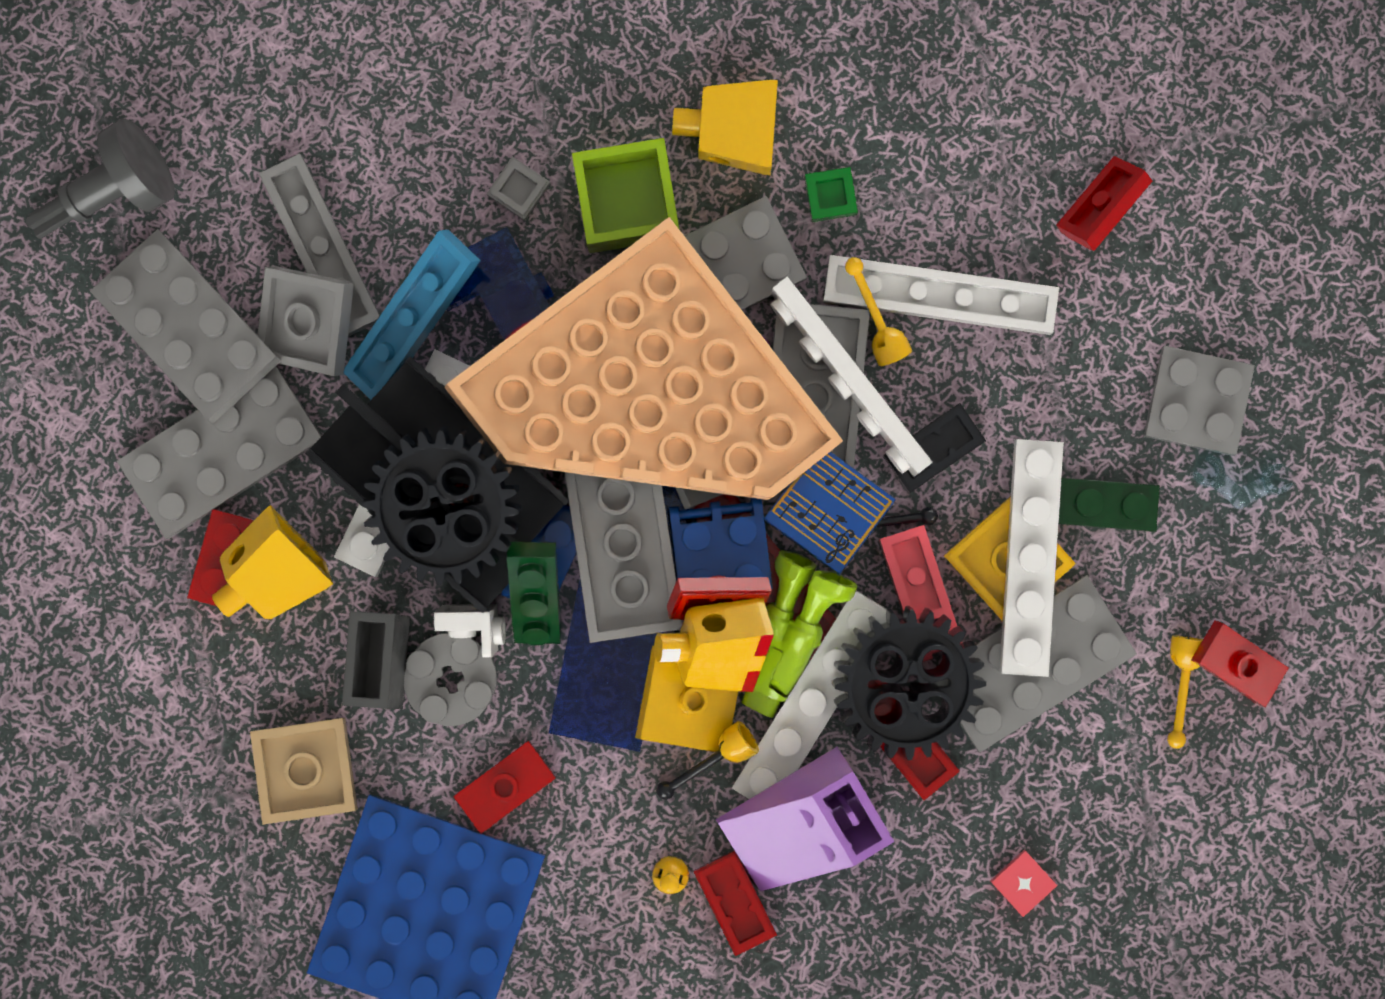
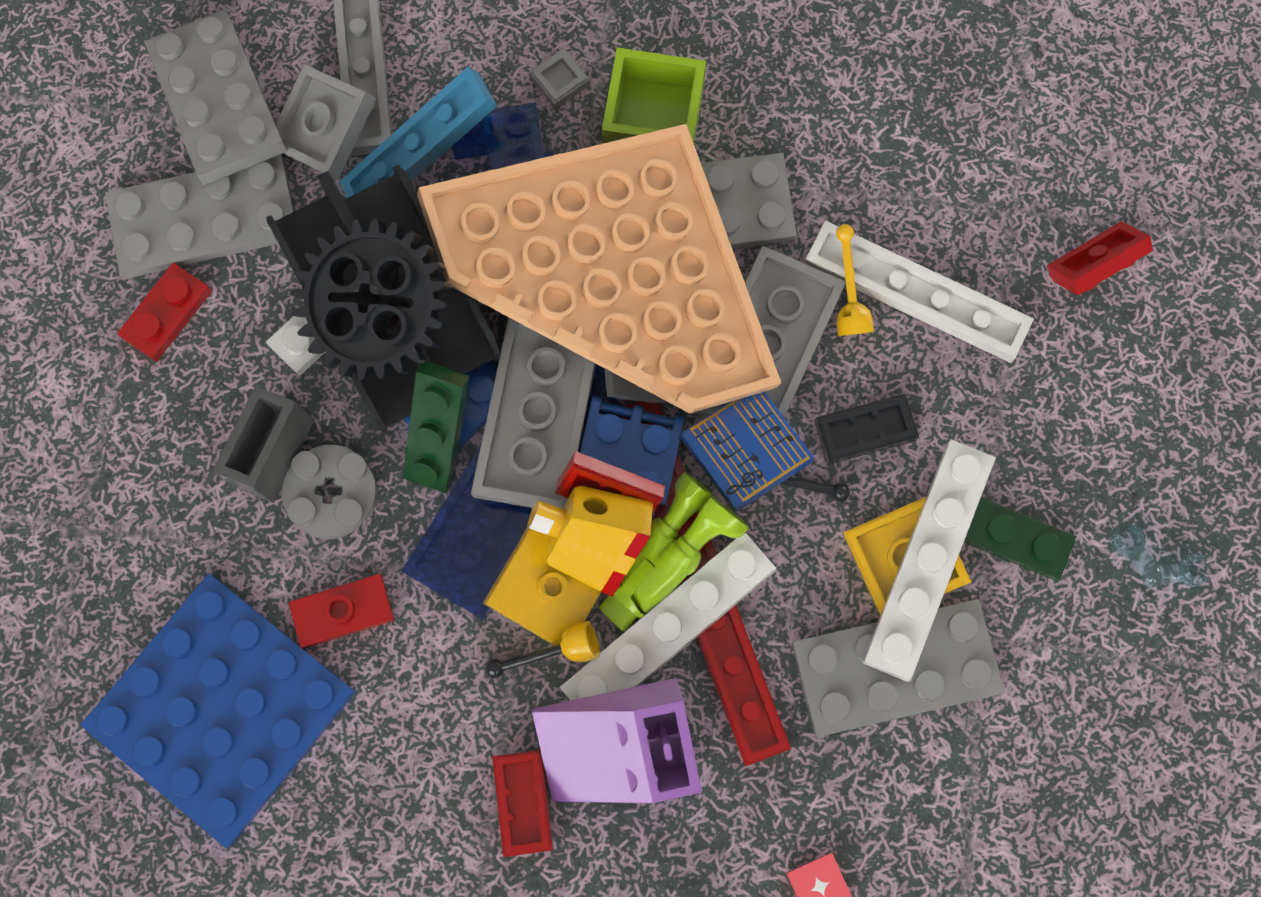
camera: 20 degrees right, 10 degrees down
(270, 568) = (200, 328): yellow torso -> none
(303, 771) = (157, 528): tan plate -> none
(465, 620) = (361, 439): white bracket -> none
(671, 868) = (466, 750): yellow hinge -> none
(733, 124) = (774, 81): yellow torso -> none
(831, 194) = (843, 170): green plate -> none
(848, 378) = (807, 333): white plate -> none
(911, 641) = (754, 679): black gear -> none
(916, 575) = (809, 560): coral plate -> none
(1181, 653) = (1056, 711): yellow hinge -> none
(1199, 400) = (1138, 470): light grey plate -> none
(1239, 663) = (1107, 736): red plate -> none

